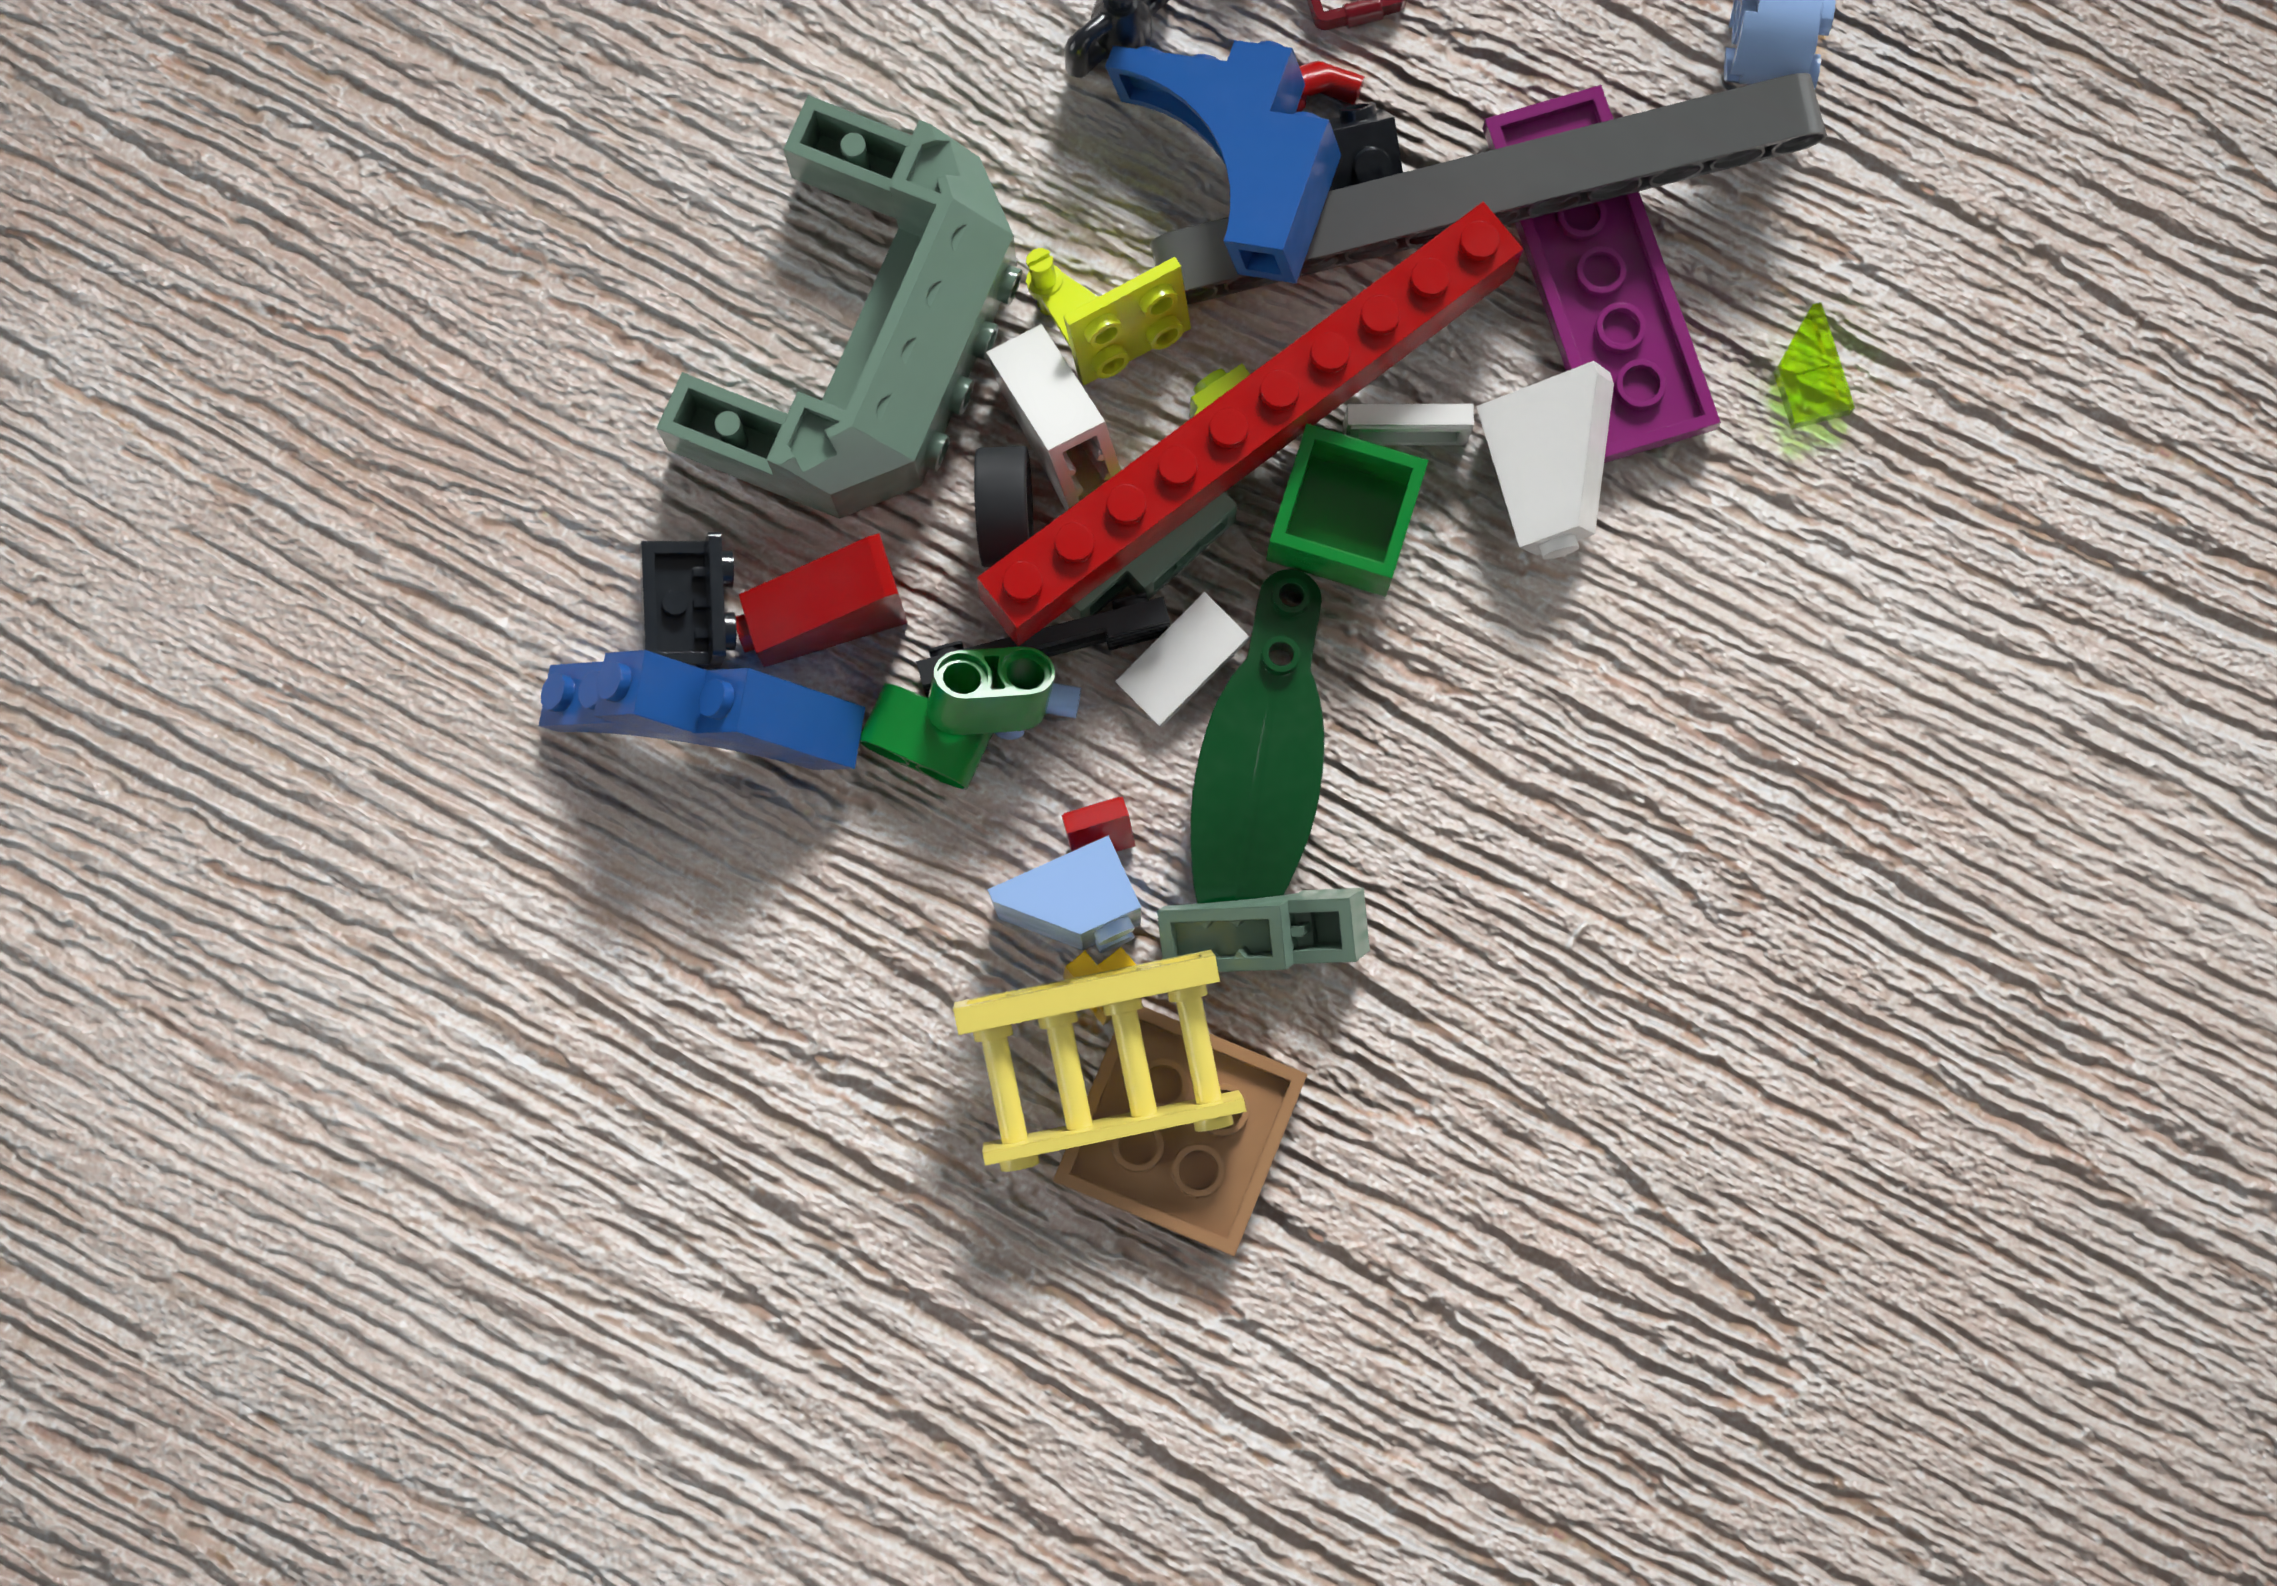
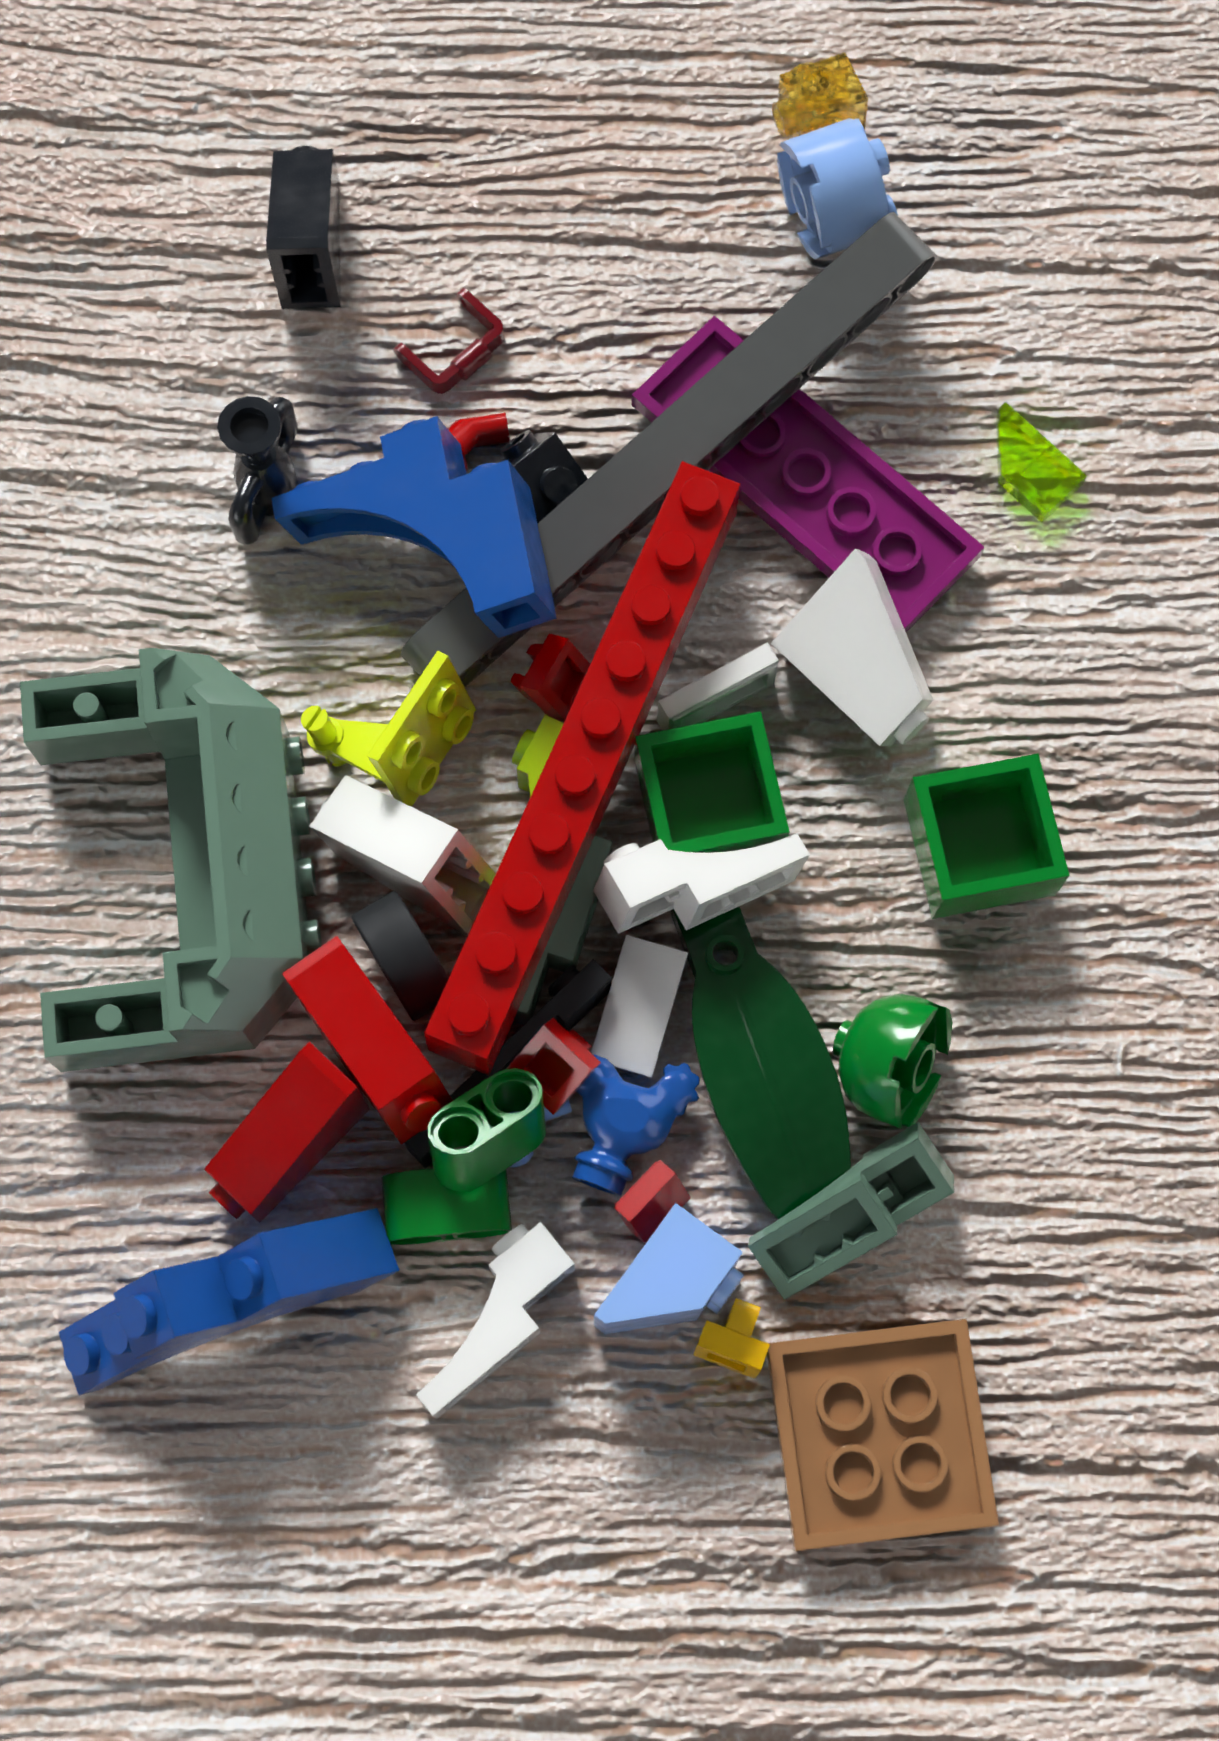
camera: 30 degrees left, 5 degrees down
(686, 600) = (156, 1201): black bracket -> none
(932, 558) = (368, 1039): none -> red slope
(958, 829) = (525, 1271): none -> white slope
(1056, 1009) = (715, 1389): light yellow fence -> none
(1082, 668) = (558, 1061): none -> red tile
(1116, 747) = (627, 1121): none -> blue animal
(1249, 557) = (698, 886): none -> white slope
(1270, 329) = (553, 676): none -> red tile
(1372, 820) = (890, 1057): none -> green cylinder
(1566, 676) = (985, 836): none -> green piece

